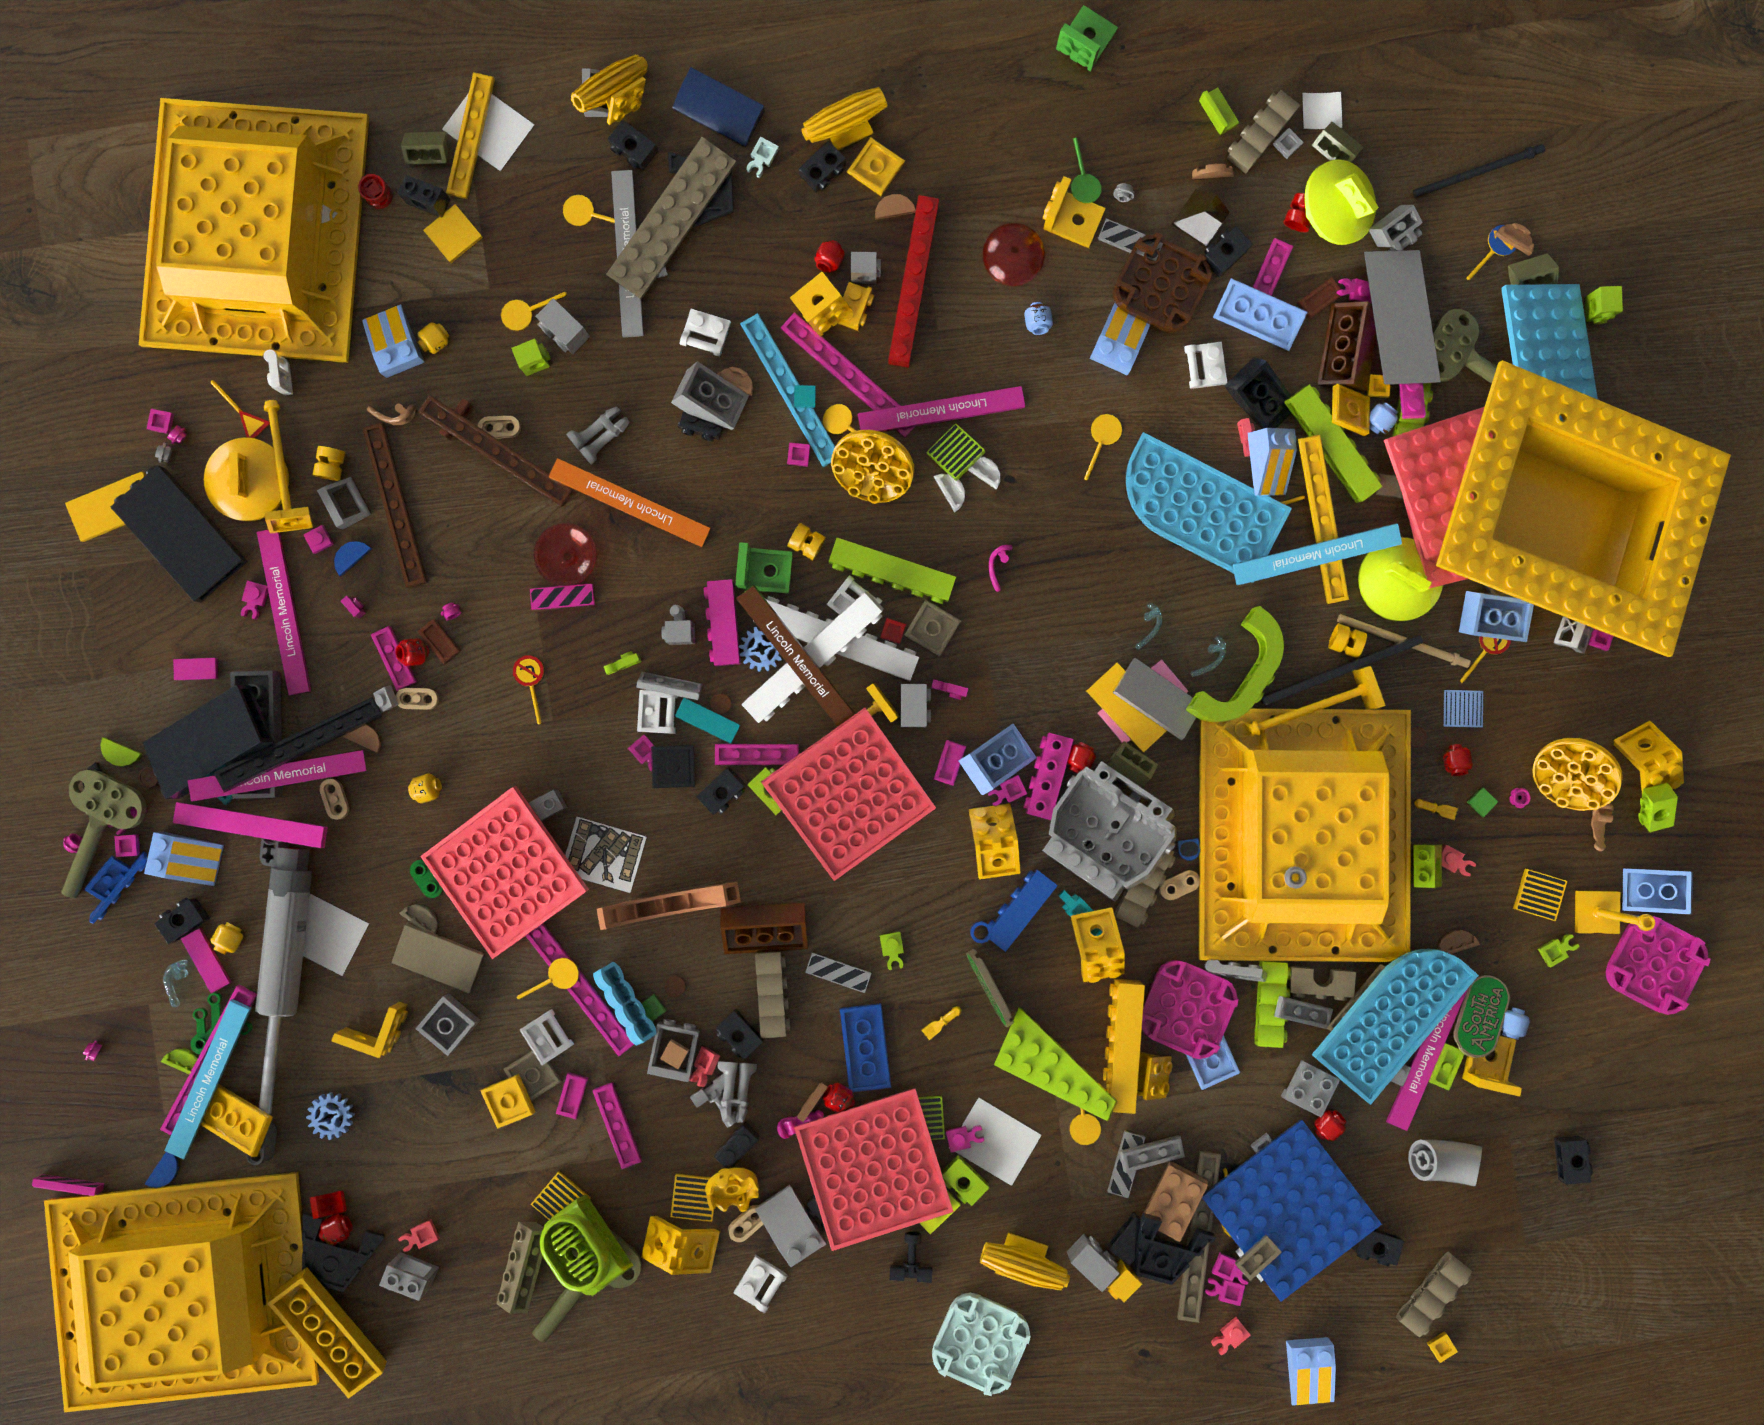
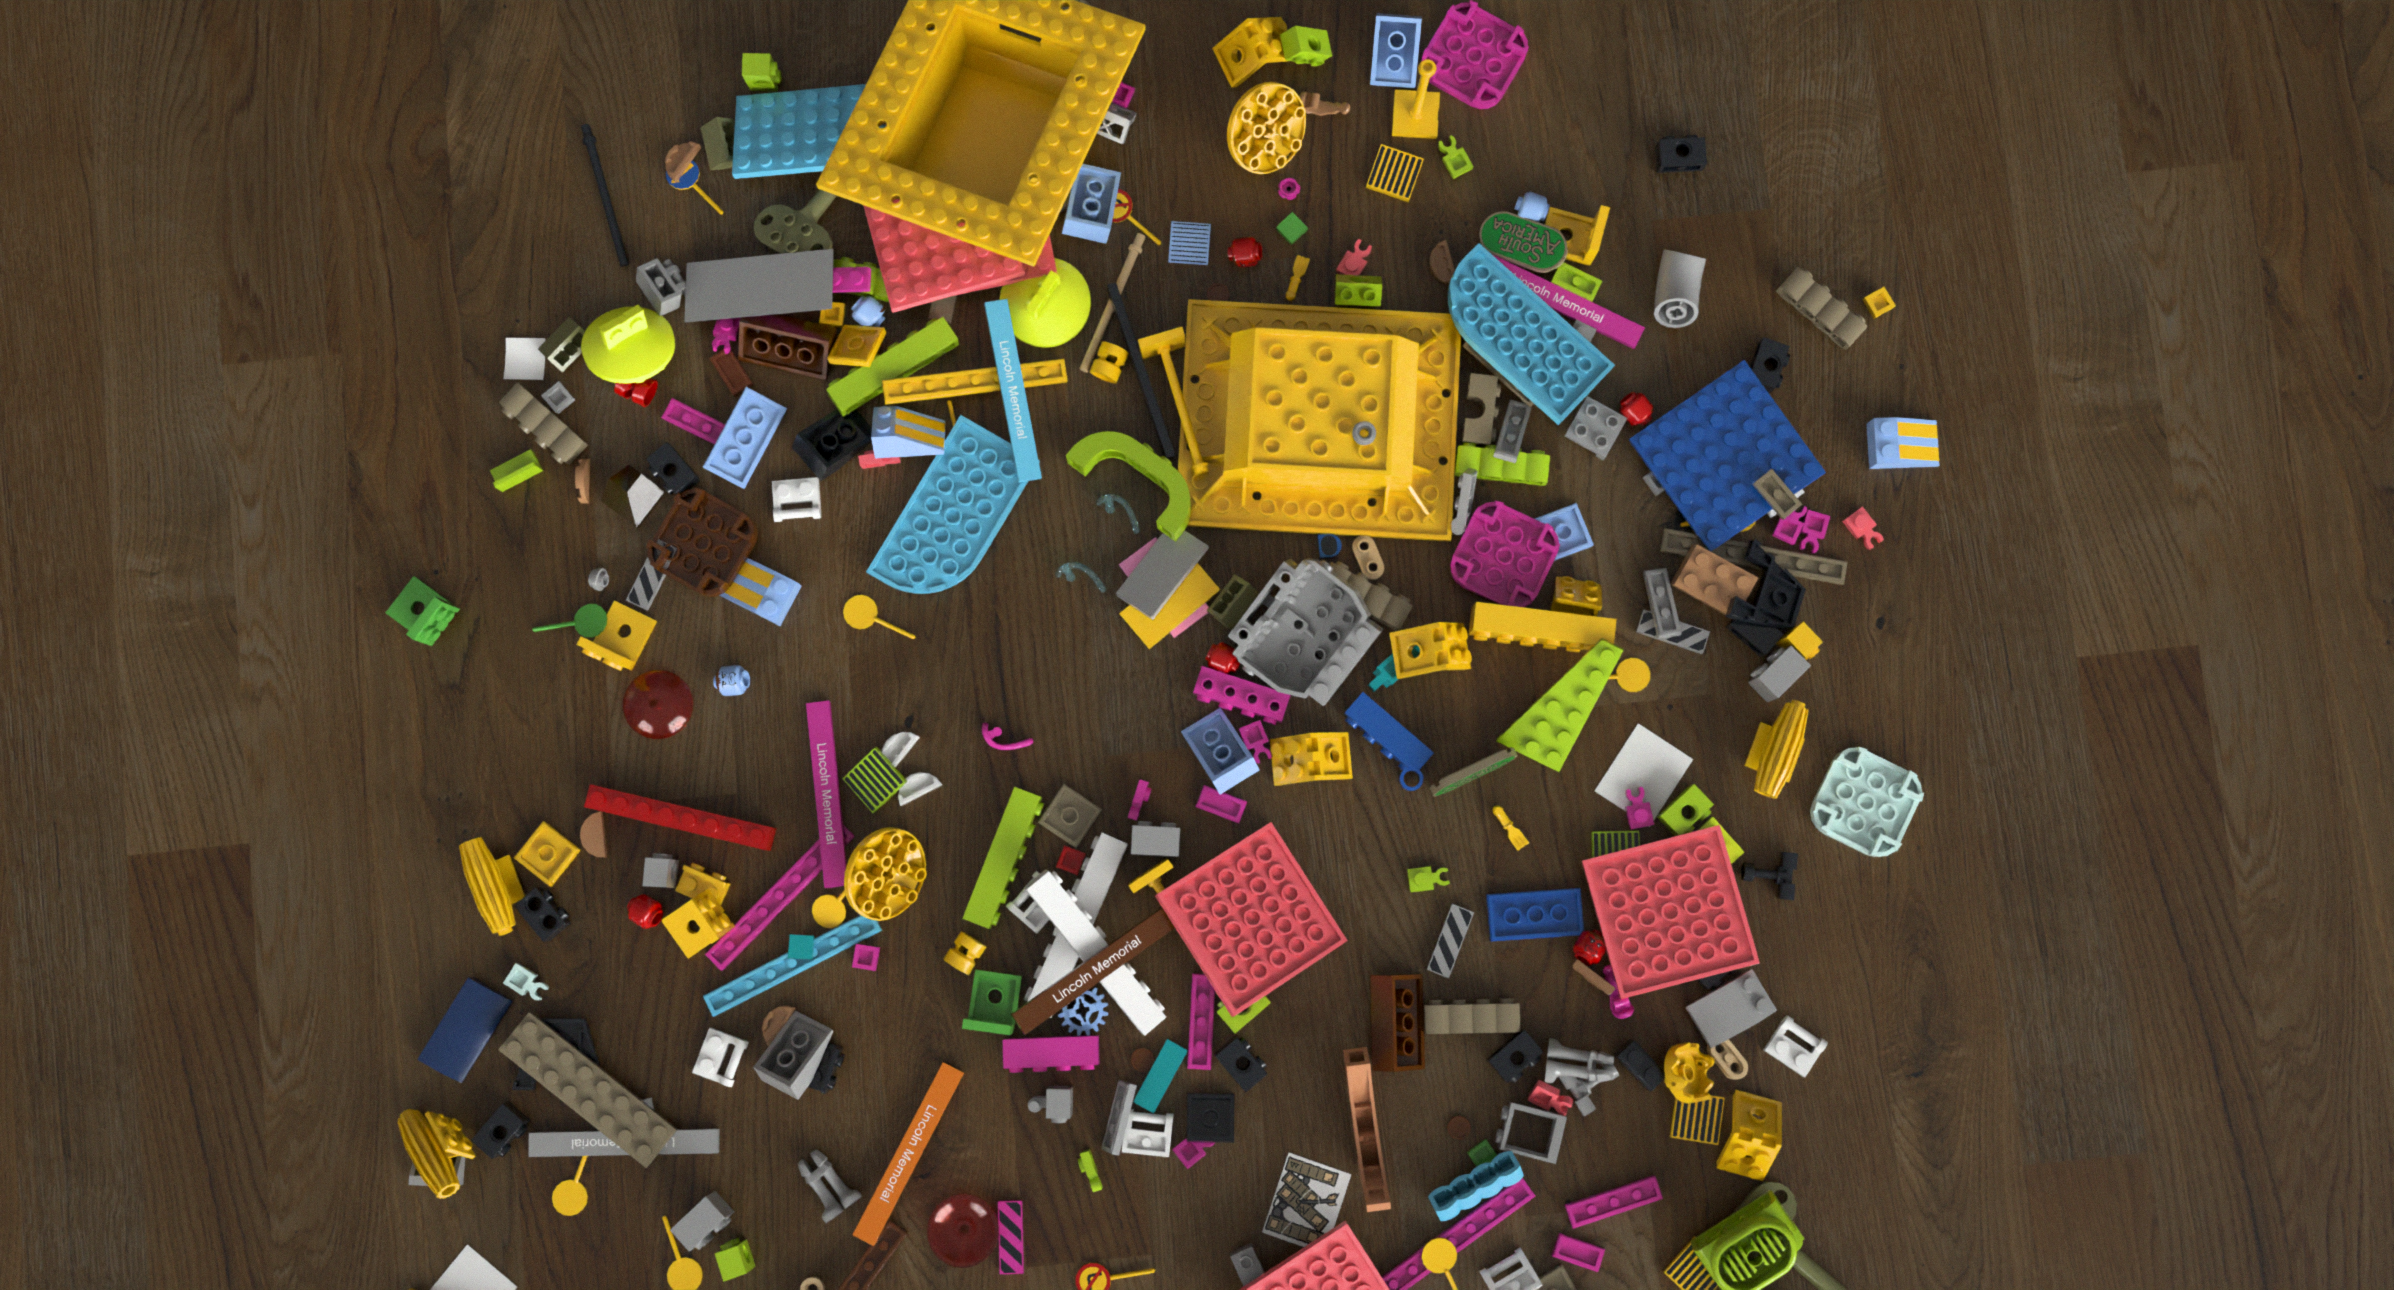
camera: 85 degrees left, 5 degrees down
(674, 1054) = (1534, 1130): medium nougat tile -> none

